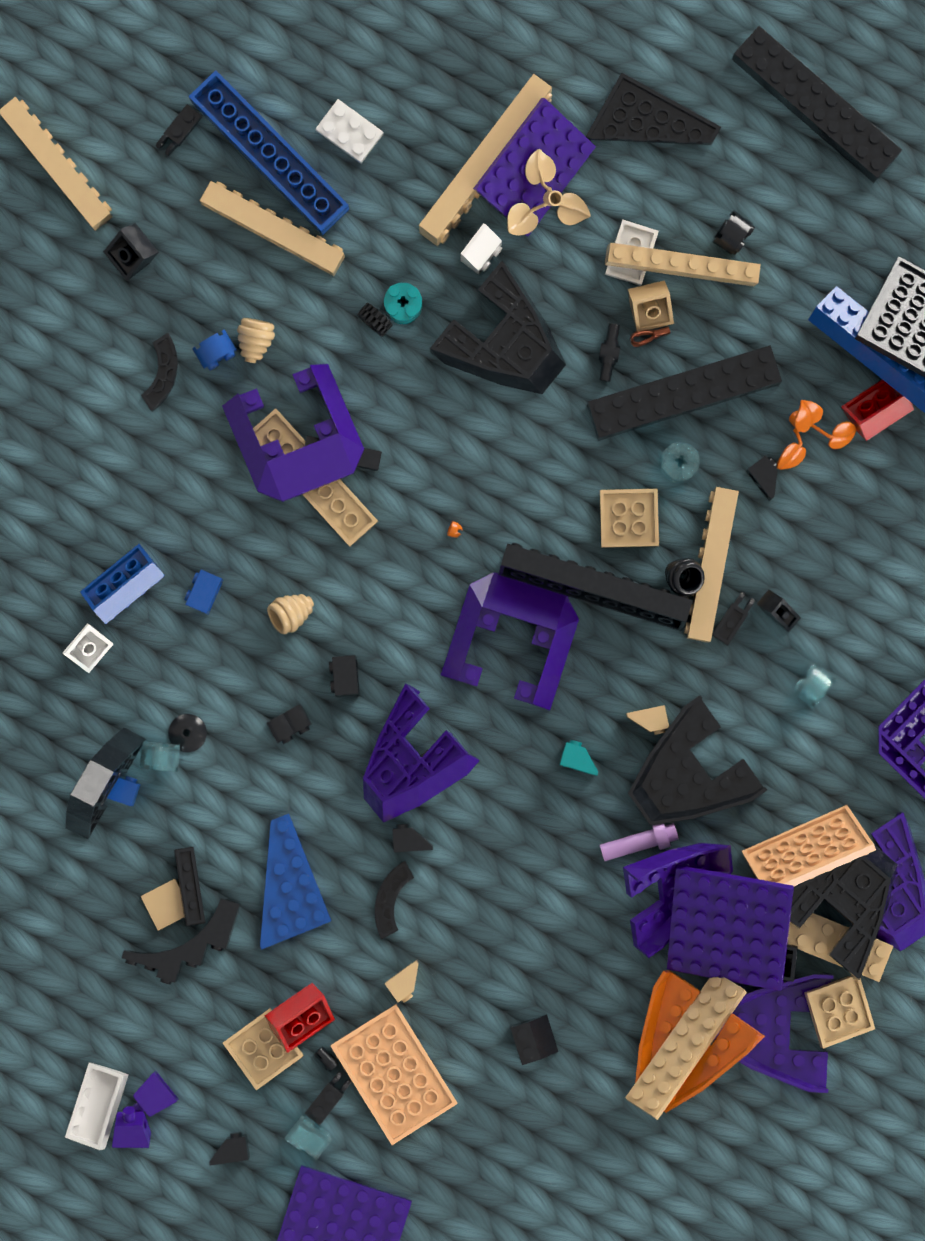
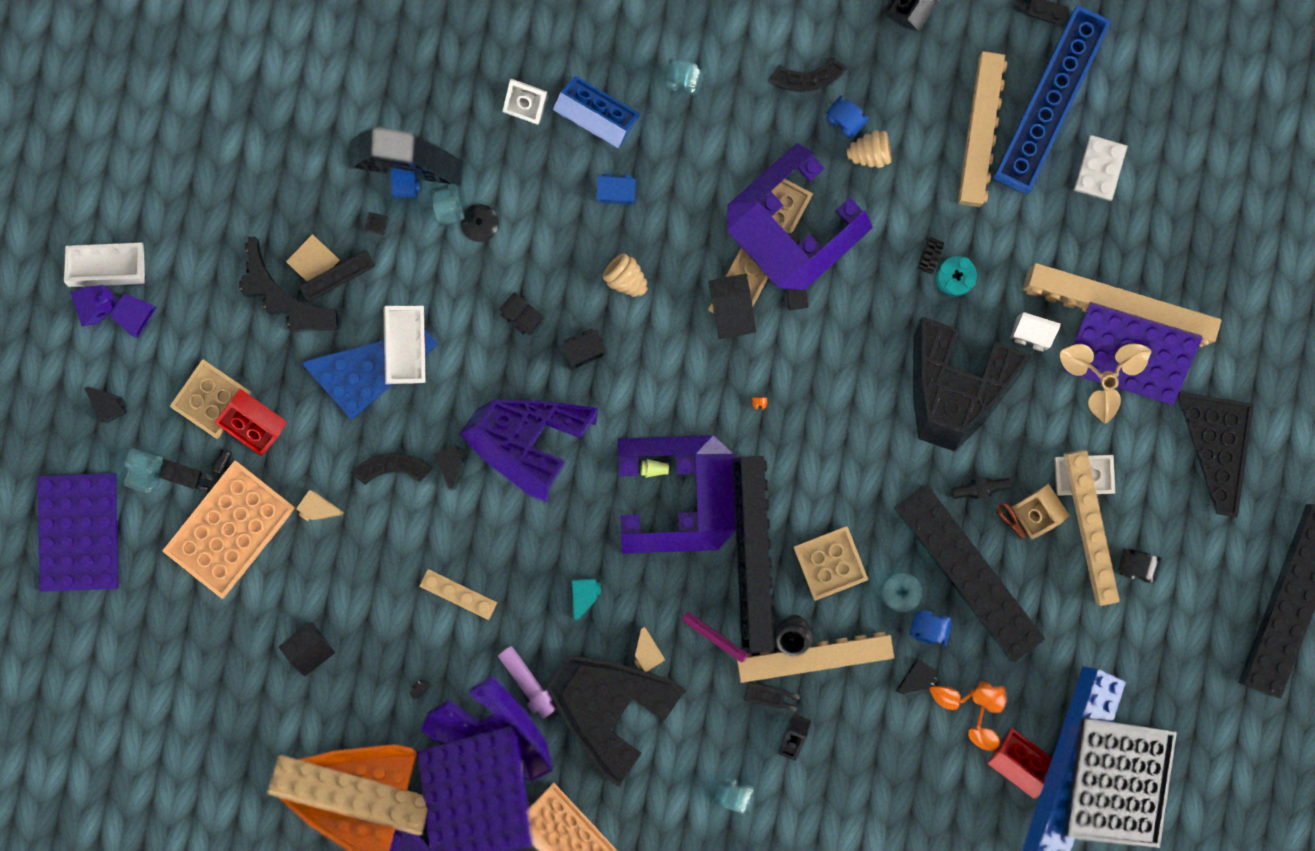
camera: 65 degrees right, 0 degrees up
(119, 488) = (684, 76): none -> clear light blue brick
(152, 831) = (376, 223): none -> black plate
(279, 845) = (404, 344): none -> white slope
(355, 522) = (732, 306): none -> black slope
(480, 652) = (653, 468): none -> yellowish green cone
(533, 878) = (458, 594): none -> tan plate
(608, 945) = (419, 688): none -> black plate
(659, 651) = (714, 637): none -> magenta axle
(723, 447) = (930, 628): none -> blue brick

